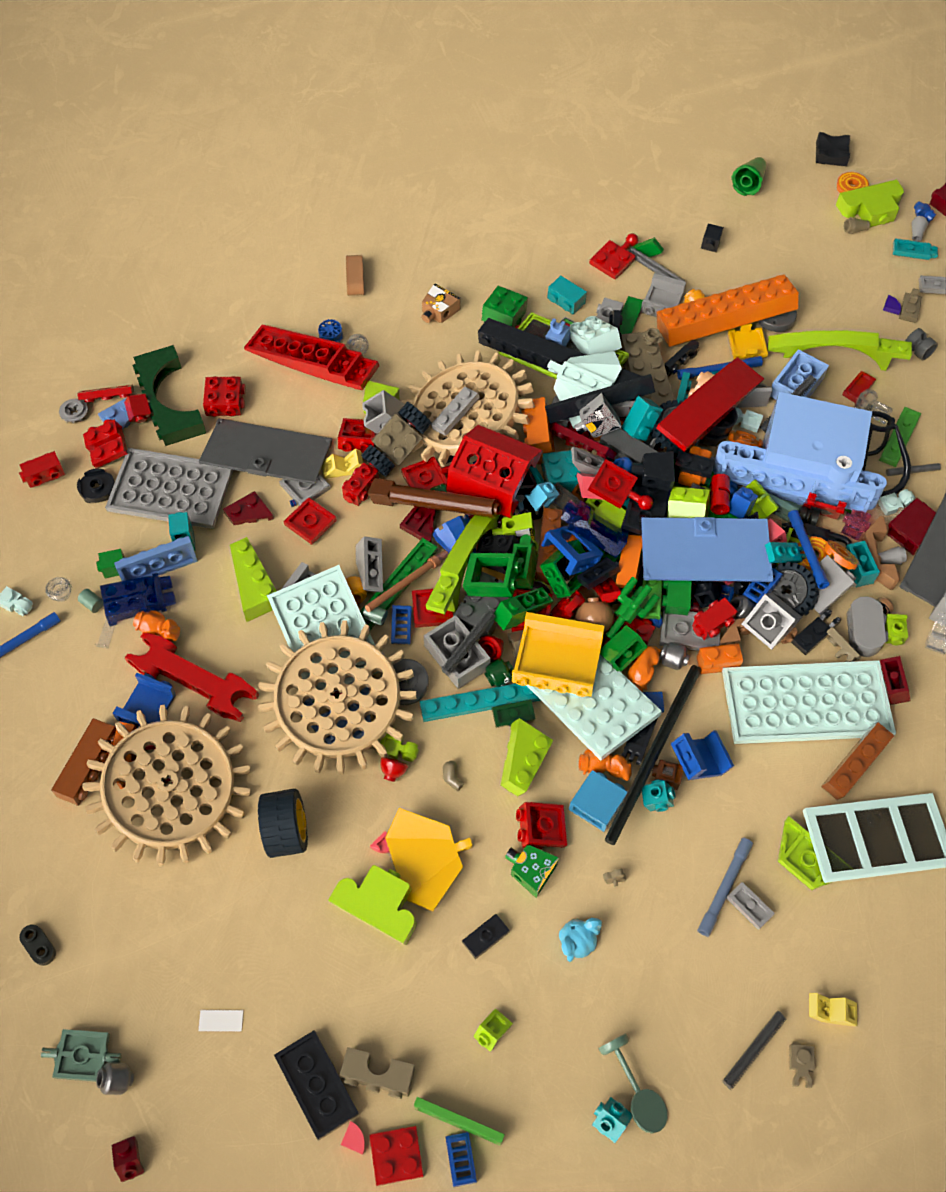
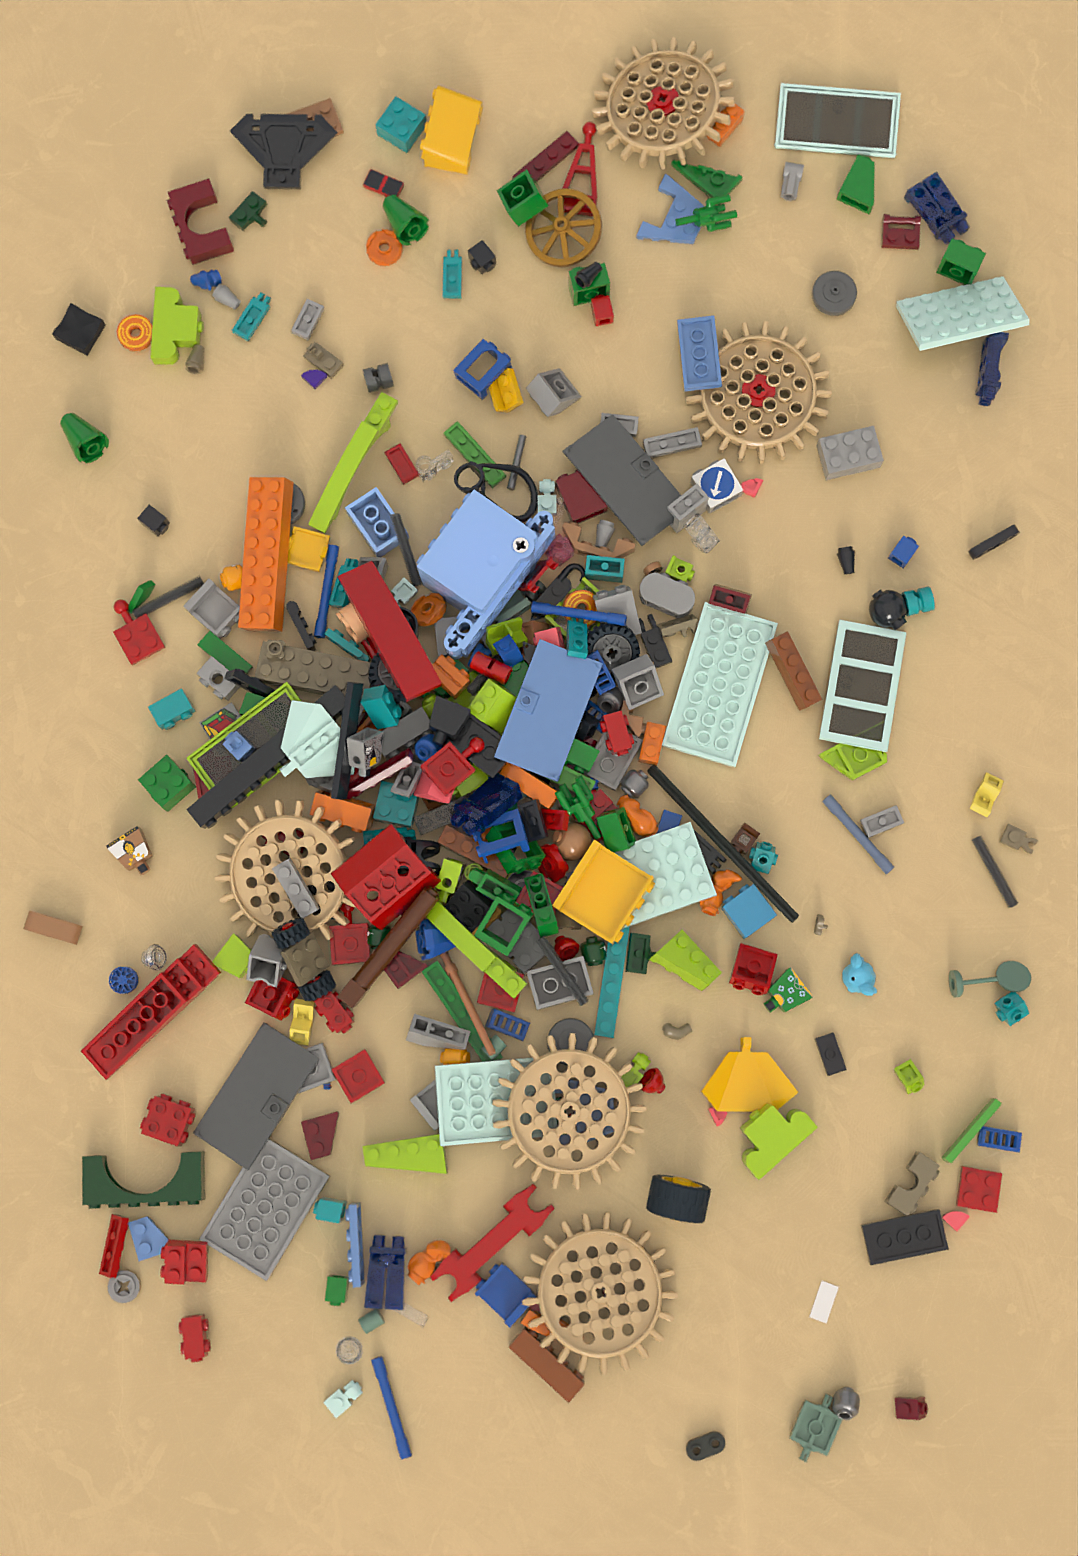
camera: 65 degrees left, 20 degrees up
(90, 478) = (224, 1291): black plate -> none
(137, 408) = (153, 1217): red brick -> none
(542, 495) = (425, 839): medium azure window -> none
(595, 336) = (254, 709): light aqua slope -> none
(694, 464) = (452, 678): black plate -> none
(702, 756) = (741, 803): blue panel -> none
(841, 555) = (598, 587): orange tile -> none

